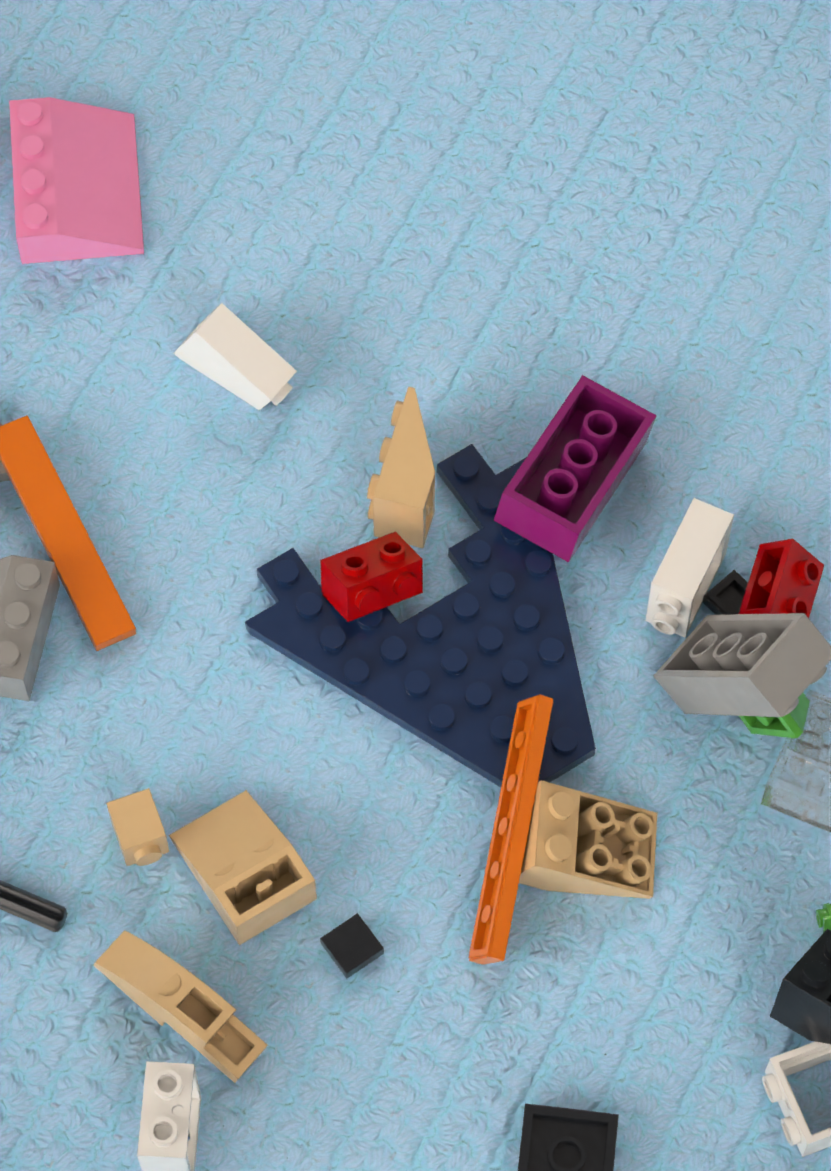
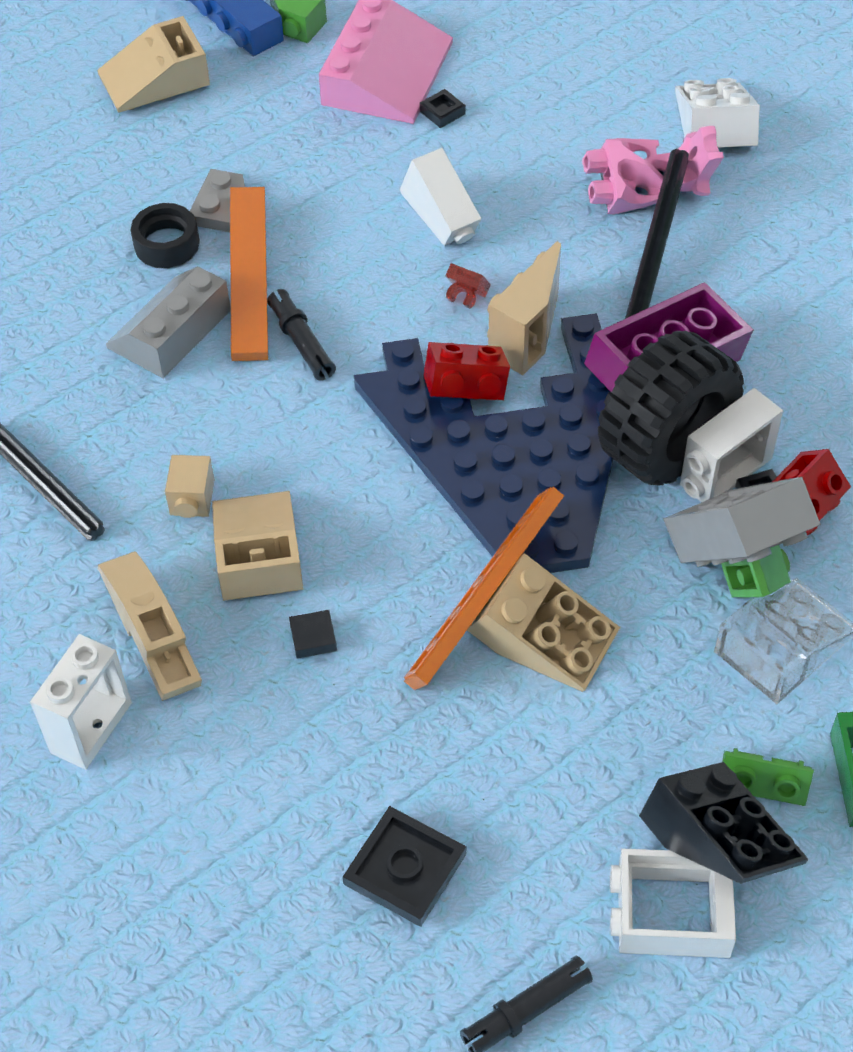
camera: 25 degrees right, 10 degrees down
(146, 580) = (294, 323): none -> black pin
(170, 221) = (442, 108): none -> black tile
(314, 456) = (466, 281): none -> clear red tile
(425, 250) = (624, 170): none -> bright pink hips
(490, 124) = (719, 105): none -> white slope
(500, 327) = (658, 232): none -> black axle
(617, 553) = (663, 401): none -> black tyre

